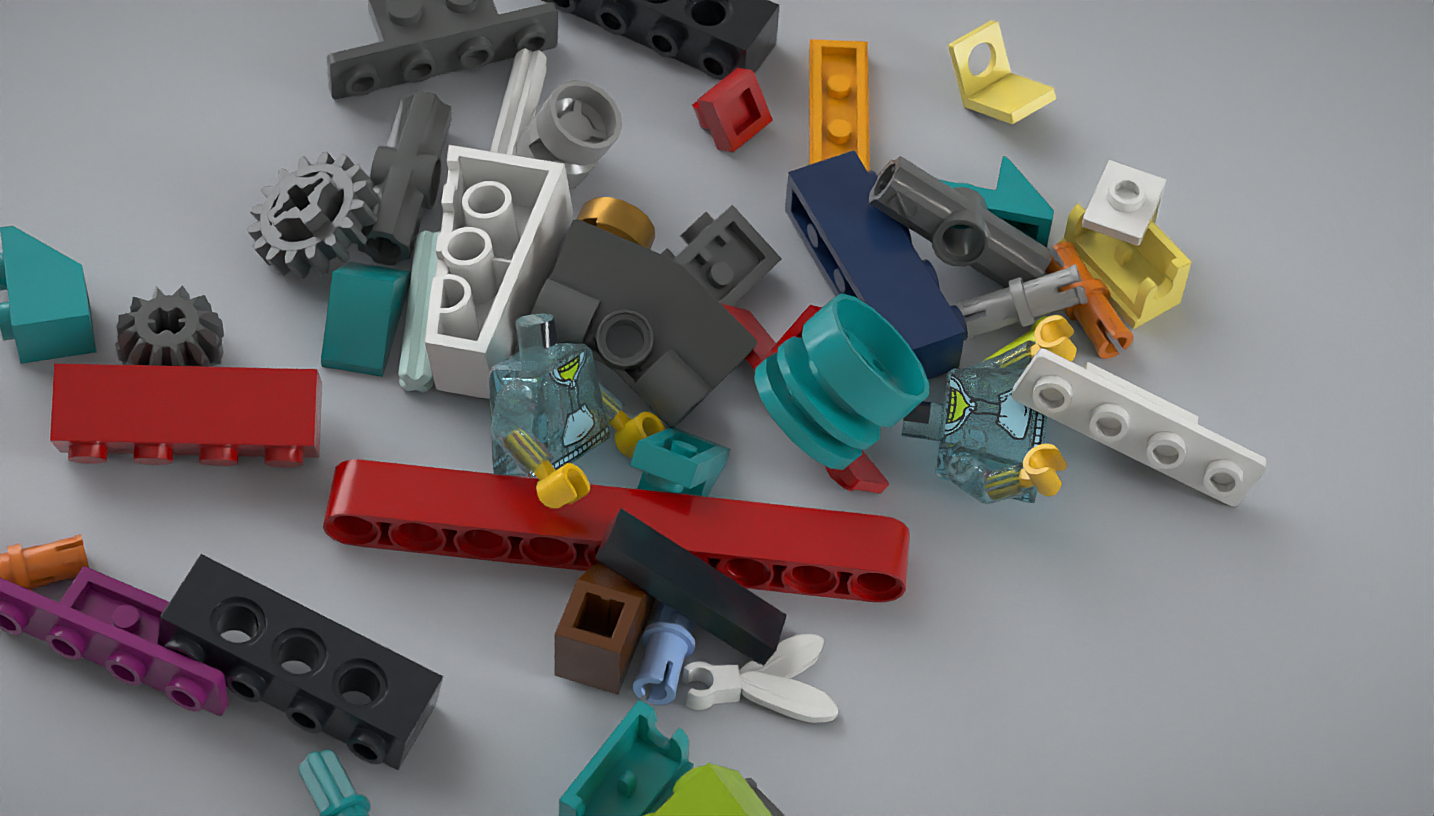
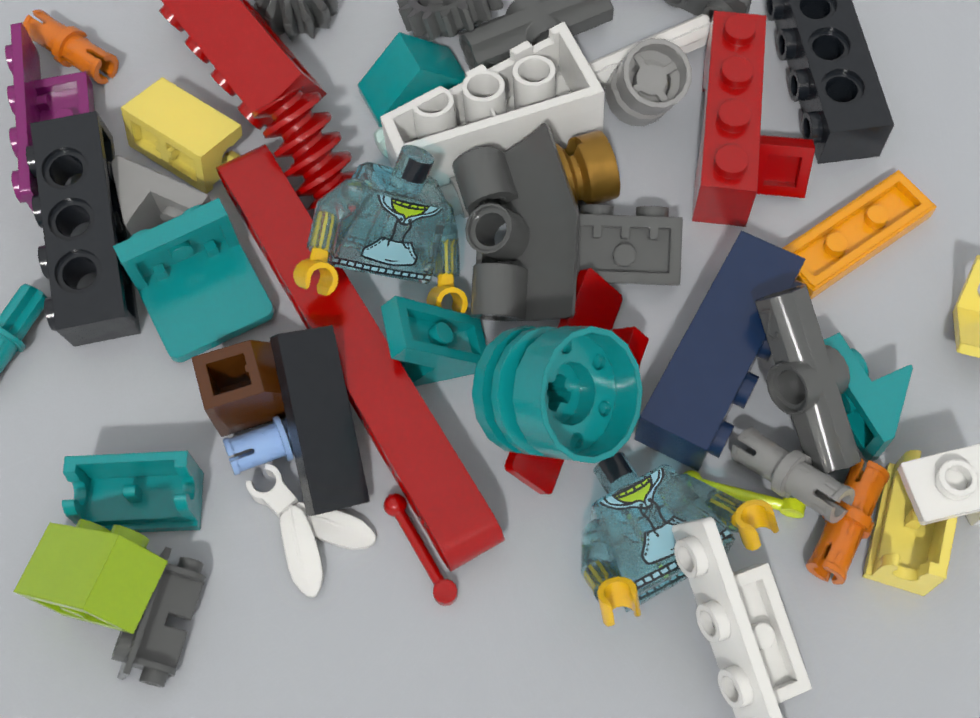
camera: 60 degrees right, 10 degrees up
(251, 525) = (180, 133): none -> light yellow hinge
(330, 578) = (150, 197): none -> light grey slope
(389, 421) = (306, 143): none -> red piece
(445, 612) = (195, 281): none -> teal bracket
(702, 141) = (732, 119): none -> red arch
(911, 616) = (444, 590): none -> red hinge

